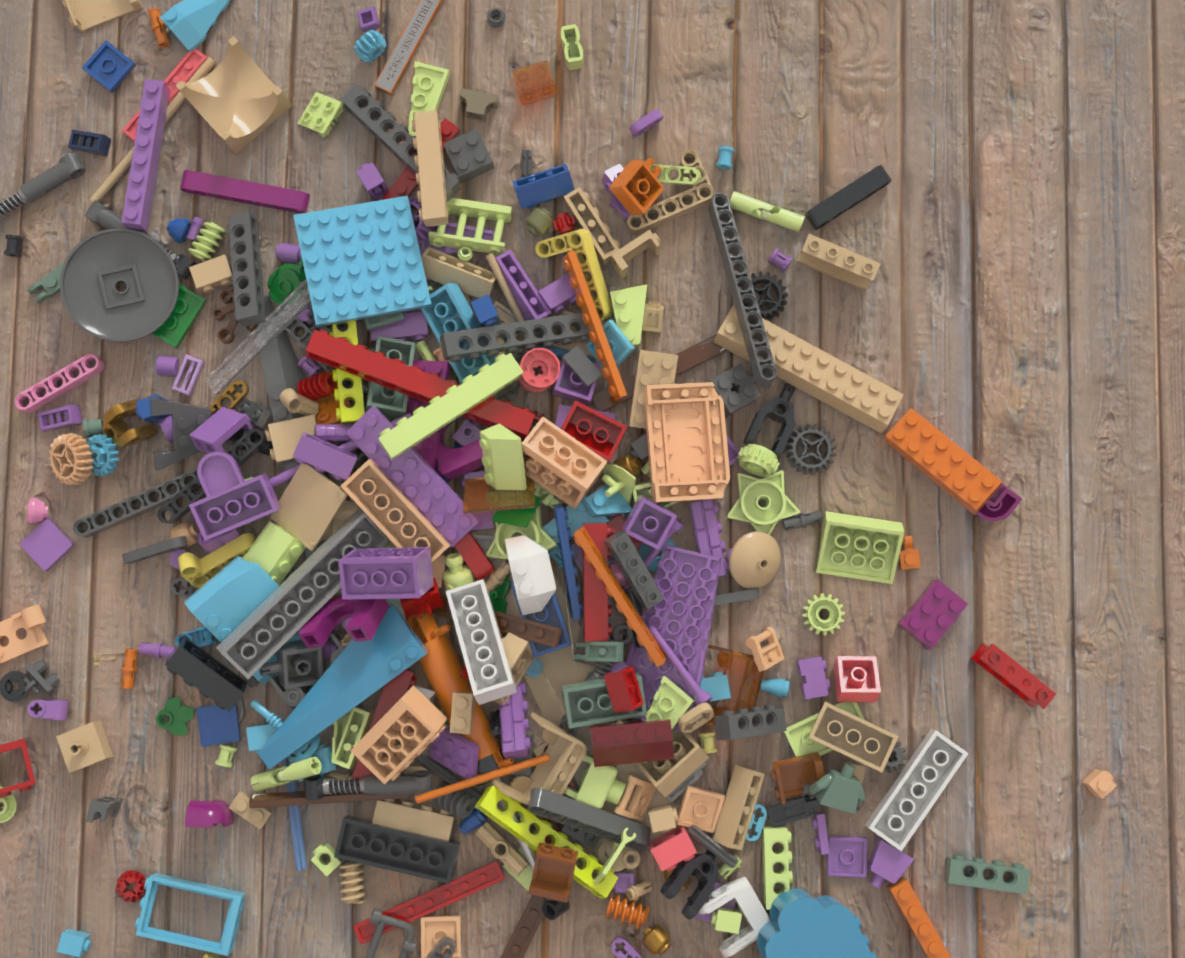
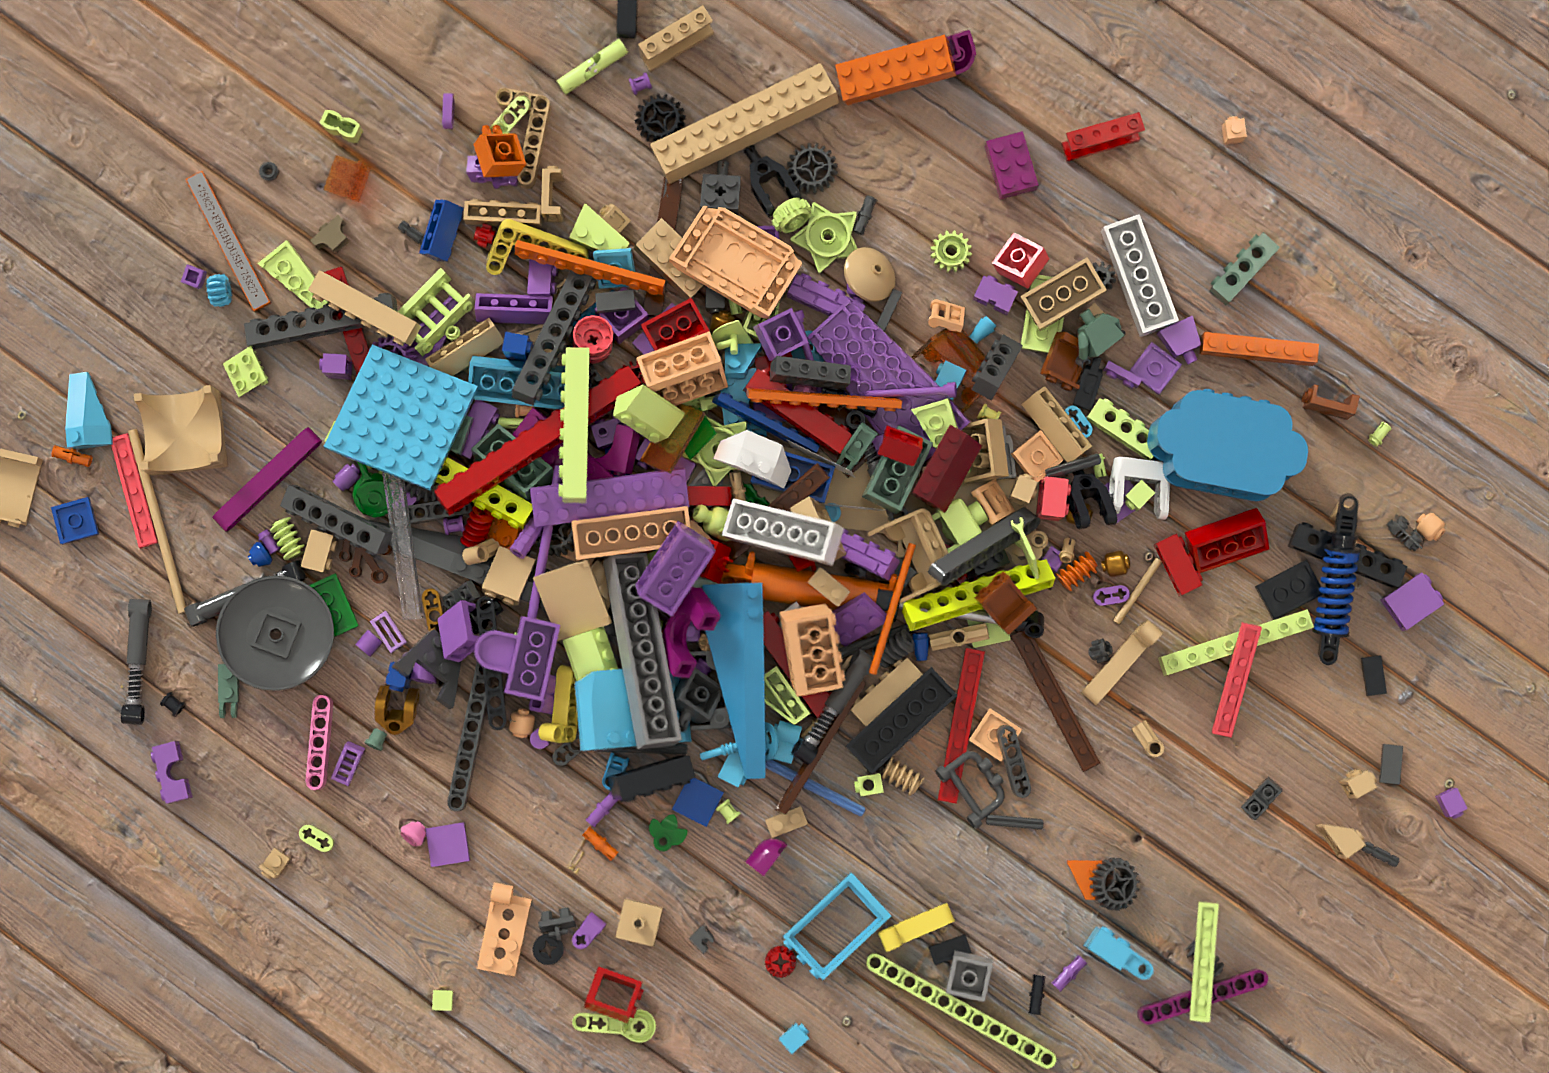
camera: 60 degrees left, 0 degrees up
(71, 459) = (392, 779): light nougat gear -> none
(101, 143) = (143, 576): dark blue slope -> none
(103, 454) = (406, 747): medium azure gear -> none
(146, 155) = (179, 537): medium lavender brick -> none
(154, 550) = (518, 753): dark grey beam -> none
(285, 774) = (781, 757): yellowish green piece -> none
(324, 456) = (543, 557): medium lavender brick -> none
(468, 155) = (371, 273): dark grey brick -> none
(505, 288) = (505, 319): tan bar -> none
(539, 221) = (468, 254): olive head -> none
(695, 717) = (962, 405): tan beam -> none
(725, 157) = (523, 68): medium azure bush -> none
(740, 296) = (649, 135): dark grey beam -> none
(859, 547) = (918, 185): yellowish green slope -> none
(909, 557) = (953, 152): orange plate -> none

